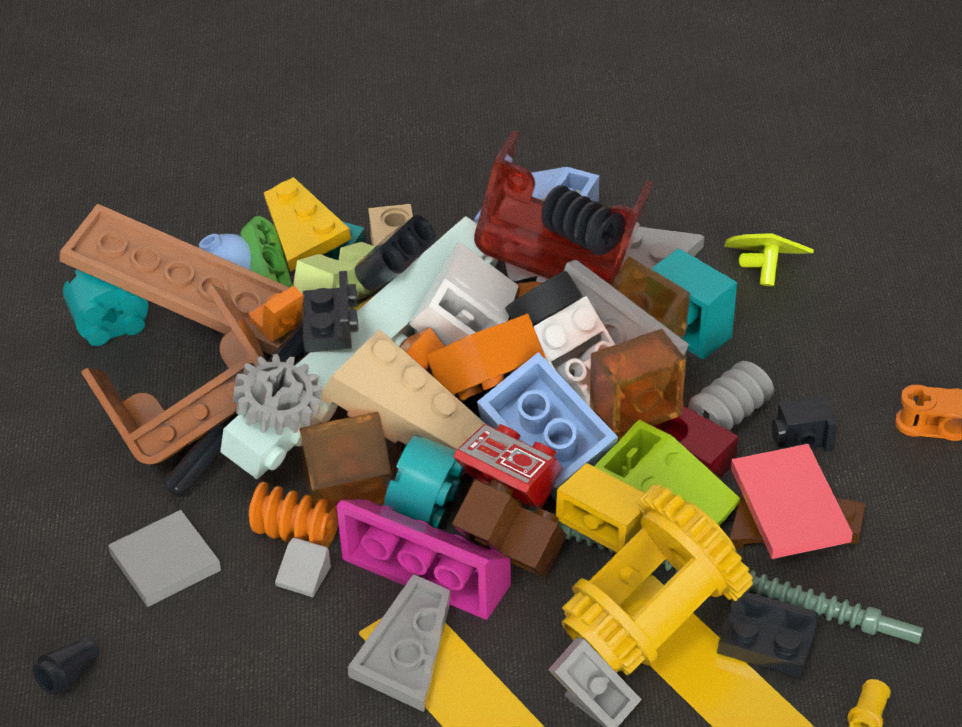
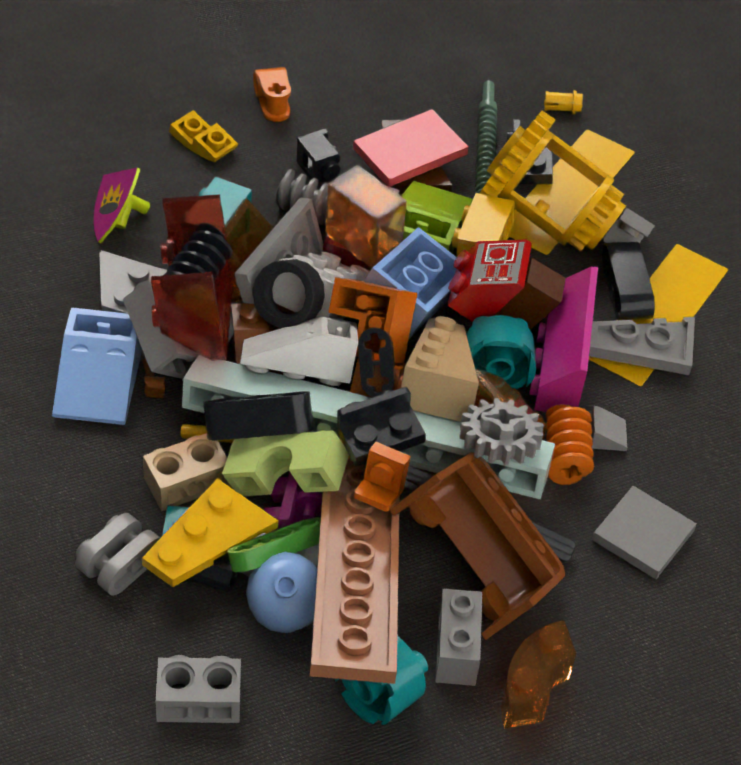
camera: 115 degrees left, 5 degrees up
(52, 408) = (534, 670): none -> clear orange brick
(127, 365) = (459, 637): none -> light grey brick
(171, 204) = (198, 699): none -> light grey brick
(330, 185) = (116, 553): none -> light grey brick
(416, 329) = (367, 362): none -> black beam
(504, 656) = (628, 281): none -> black beam
(875, 345) = (201, 138): none -> yellow slope

